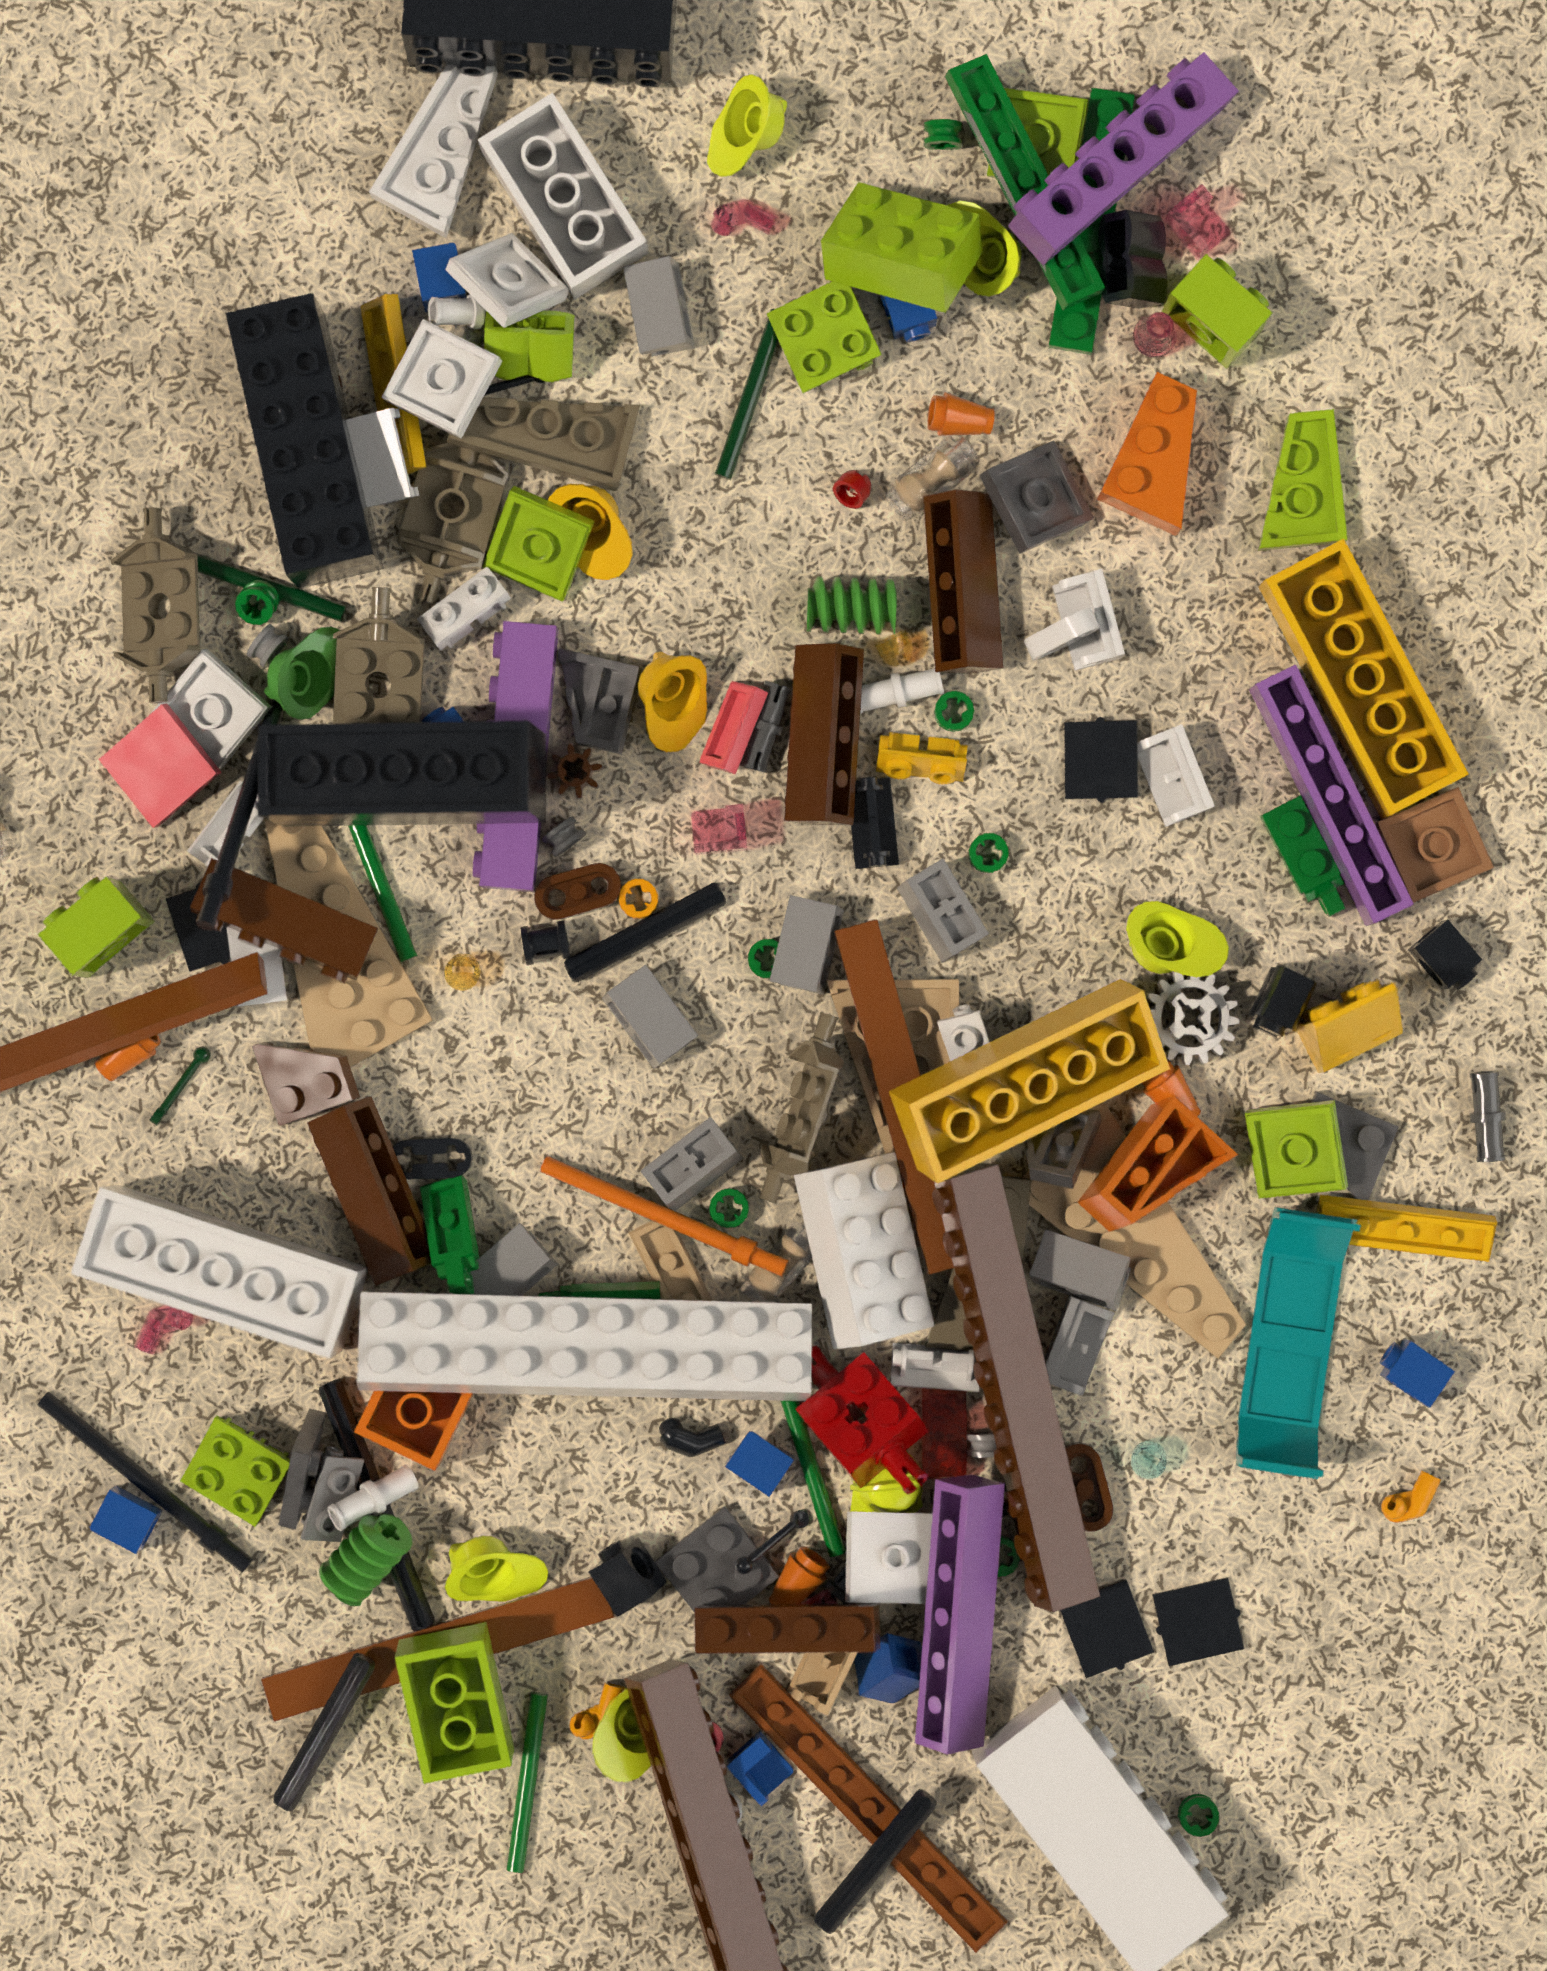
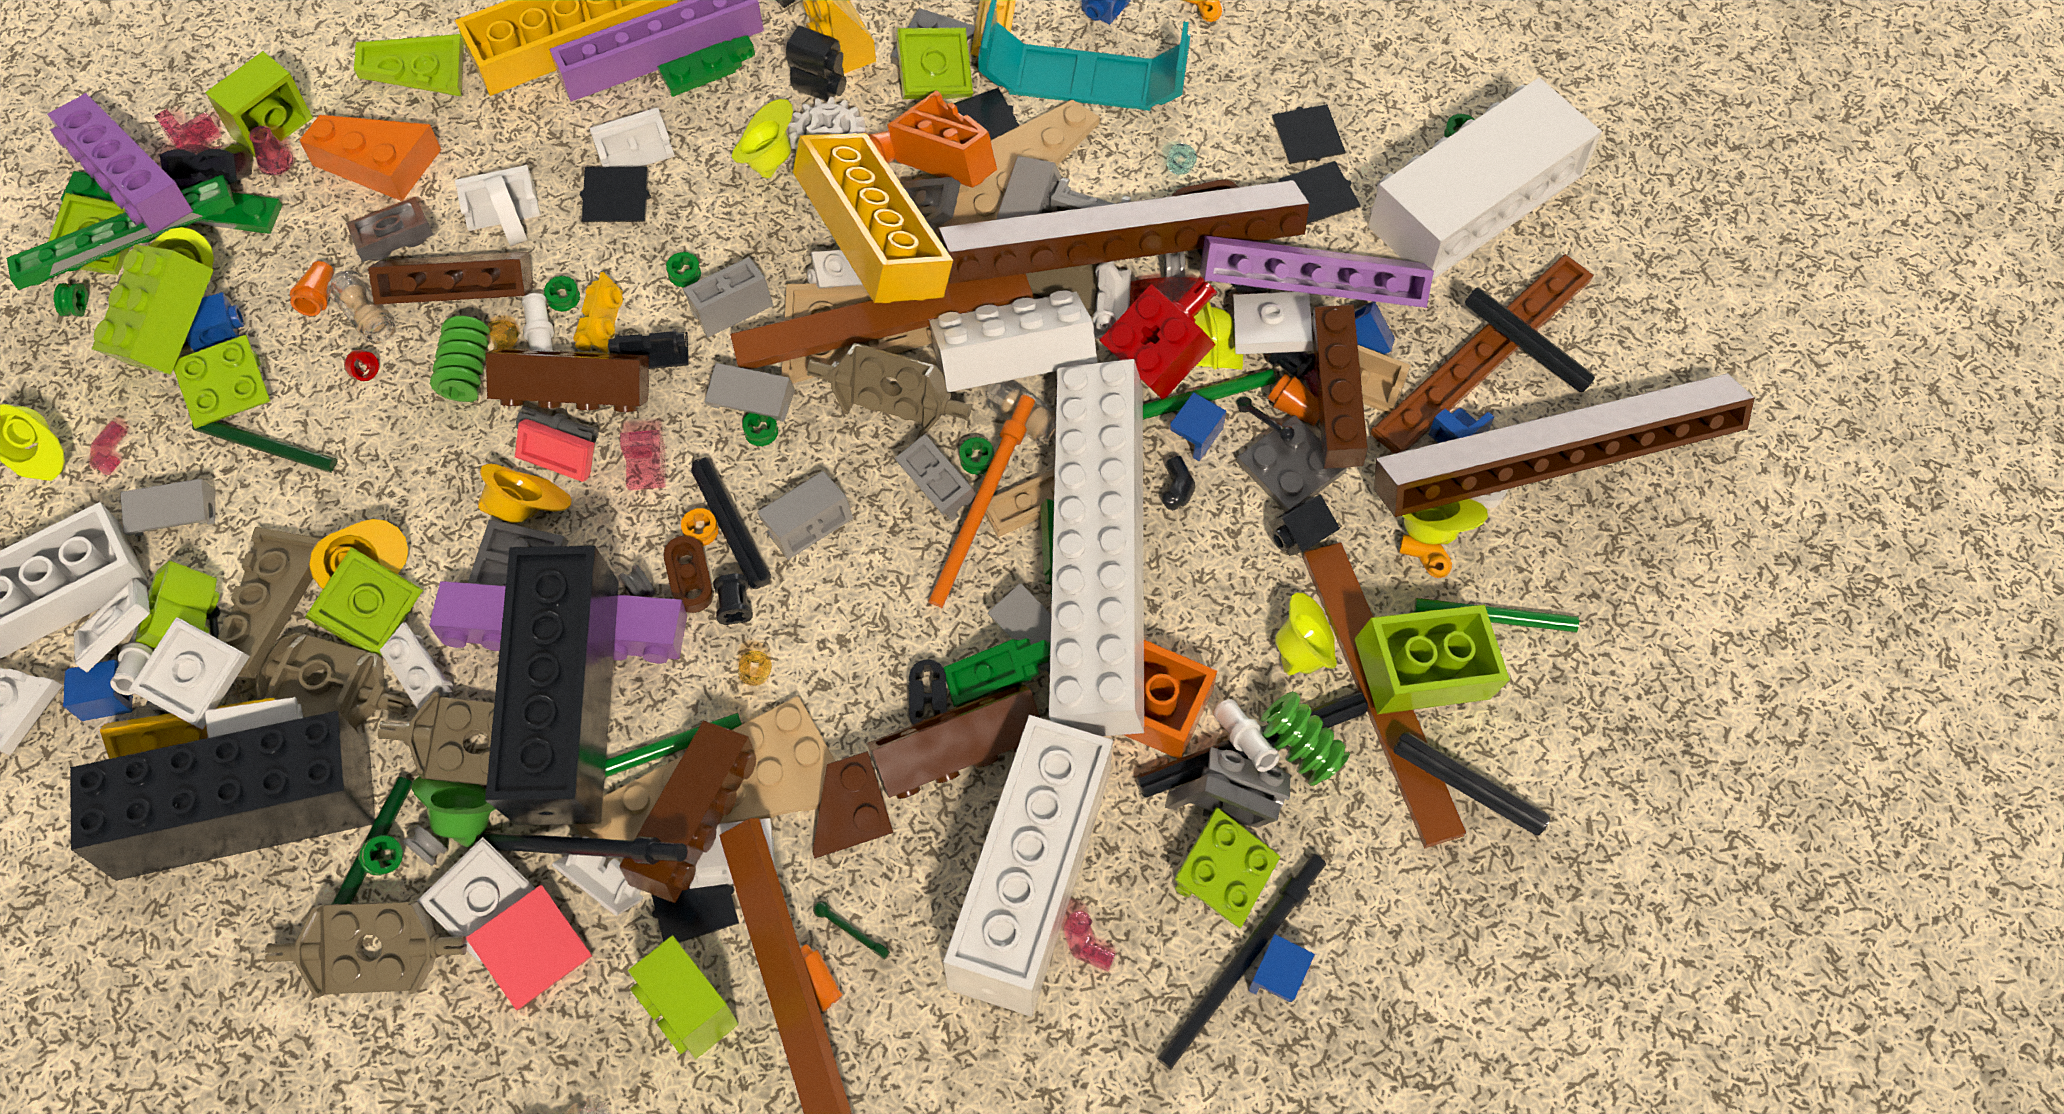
camera: 90 degrees left, 25 degrees down
(1223, 1210) = (990, 112): none -> black piece

